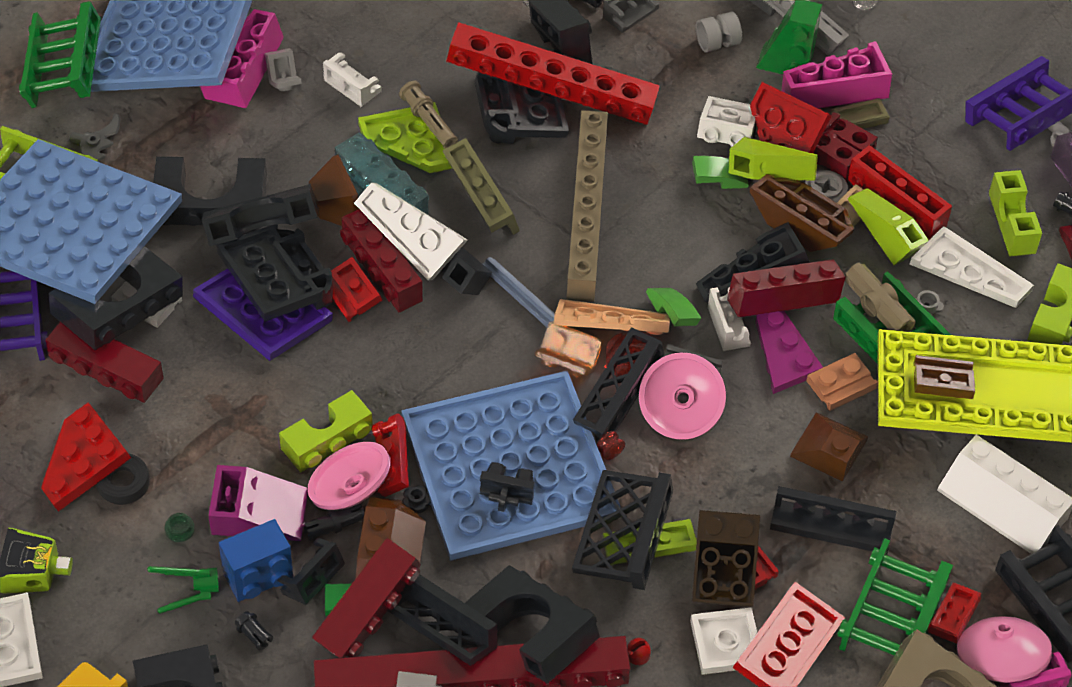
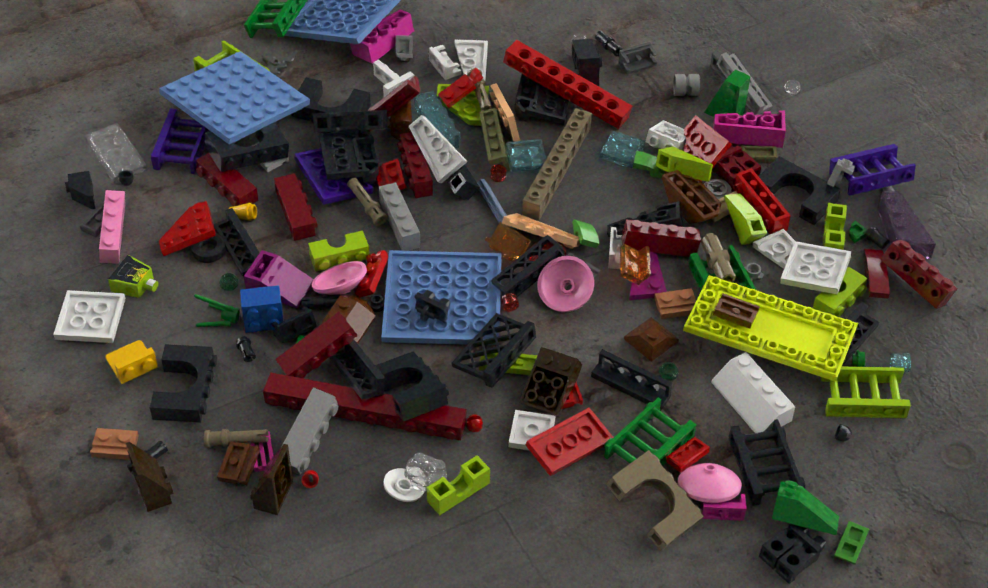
camera: 20 degrees right, 5 degrees down
(152, 405) = (246, 211): none -> yellow cone
(172, 449) = (243, 242): none -> black fence
(228, 376) = (295, 207): none -> dark red brick
(294, 134) = (388, 77): none -> white bracket
(319, 160) = (398, 97): none -> dark red fence
(346, 347) = (371, 207): none -> dark tan pin
(389, 61) = (472, 55): none -> white wing
(393, 351) = (399, 217): none -> light grey brick
(400, 120) = (460, 88): none -> red plate
(483, 144) = (504, 112): none -> light nougat wing
(510, 236) = (498, 169): none -> clear red bush
(536, 201) = (526, 155): none -> clear light blue plate
(667, 156) = (621, 149): none -> clear light blue plate
(768, 337) = (635, 264): none -> clear orange bracket
(875, 491) = (668, 371): none -> clear green plate
(970, 155) = (785, 173): none -> black arch
(985, 122) = (841, 166): none -> light grey bracket
(1017, 277) = (816, 267): none -> white plate
(1040, 203) = (857, 232): none -> green tile

